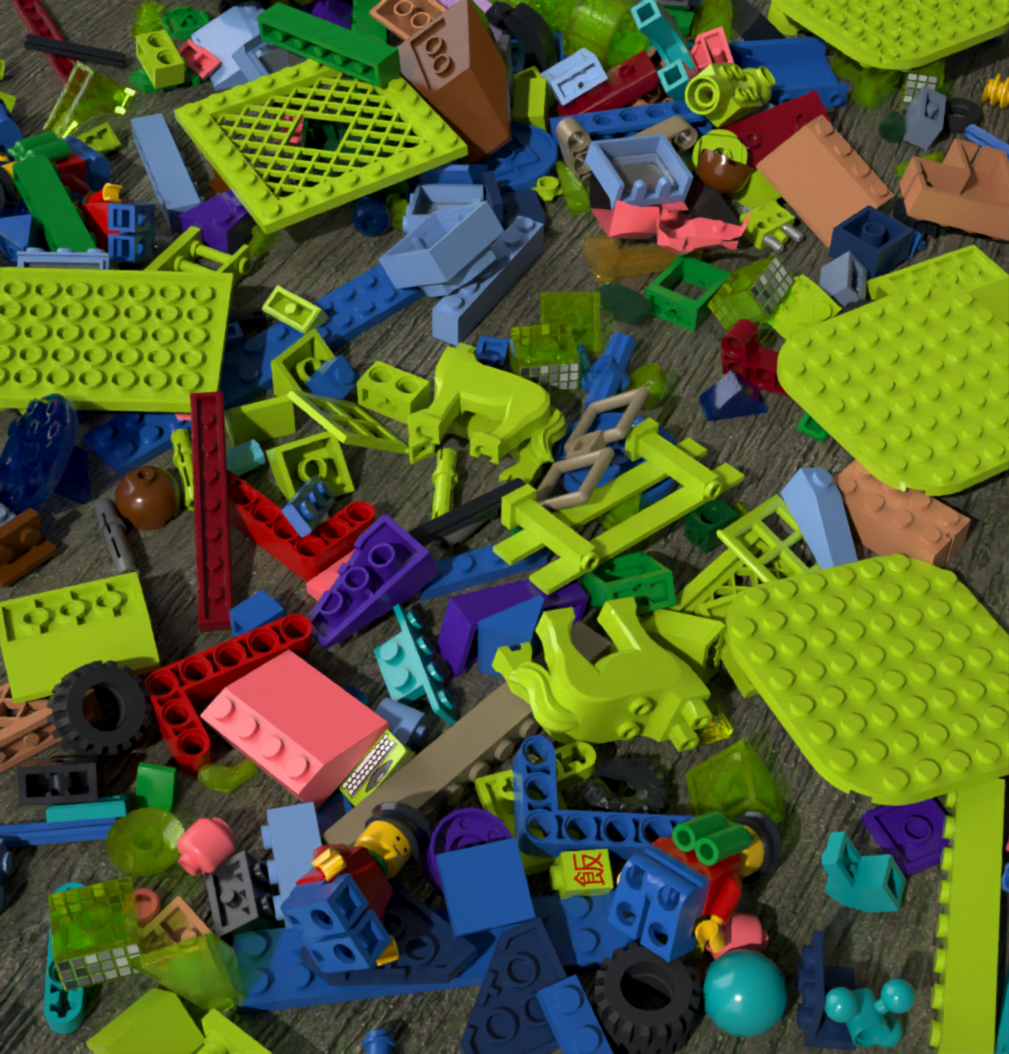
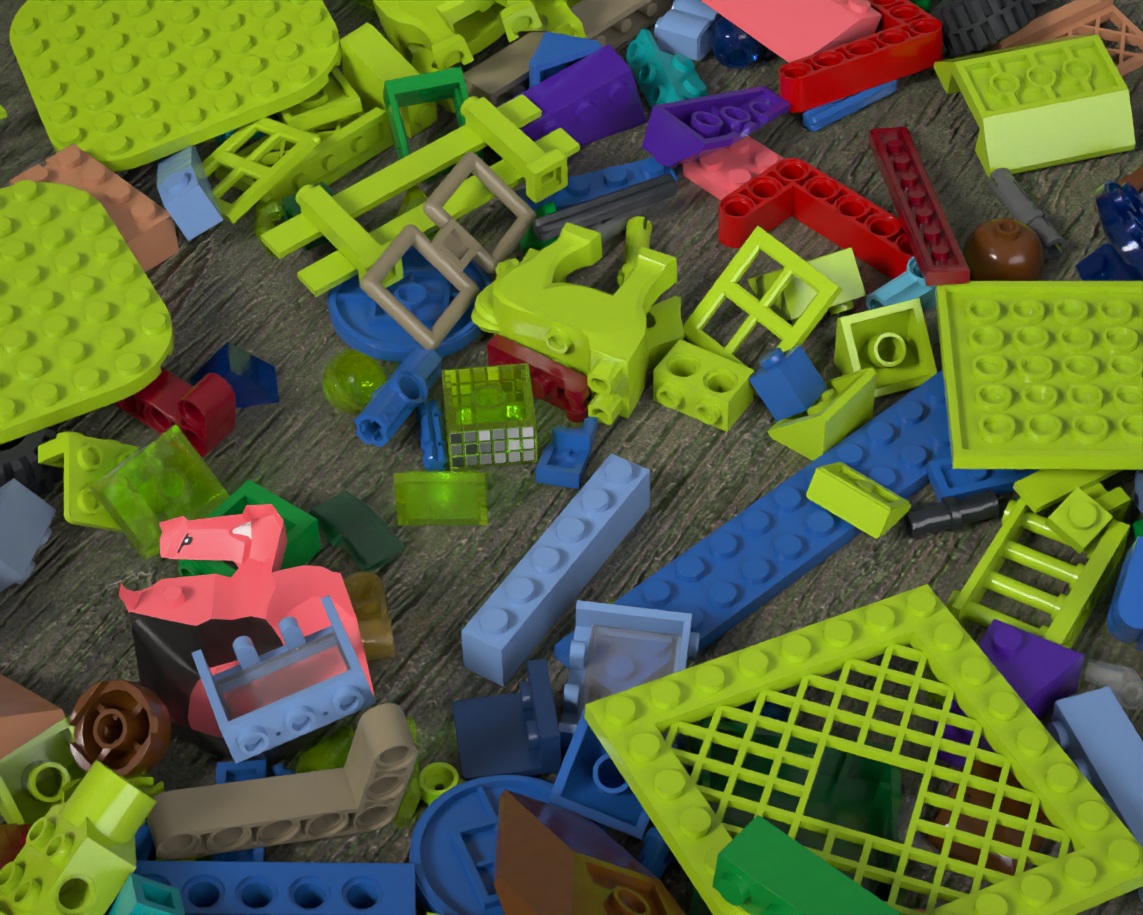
camera: 175 degrees left, 0 degrees up
(255, 612) = (841, 123): blue brick -> none
(309, 505) = (800, 198): blue plate -> none
(444, 250) = (633, 518): medium blue container -> none
(769, 226) = (68, 677): lime piece -> none

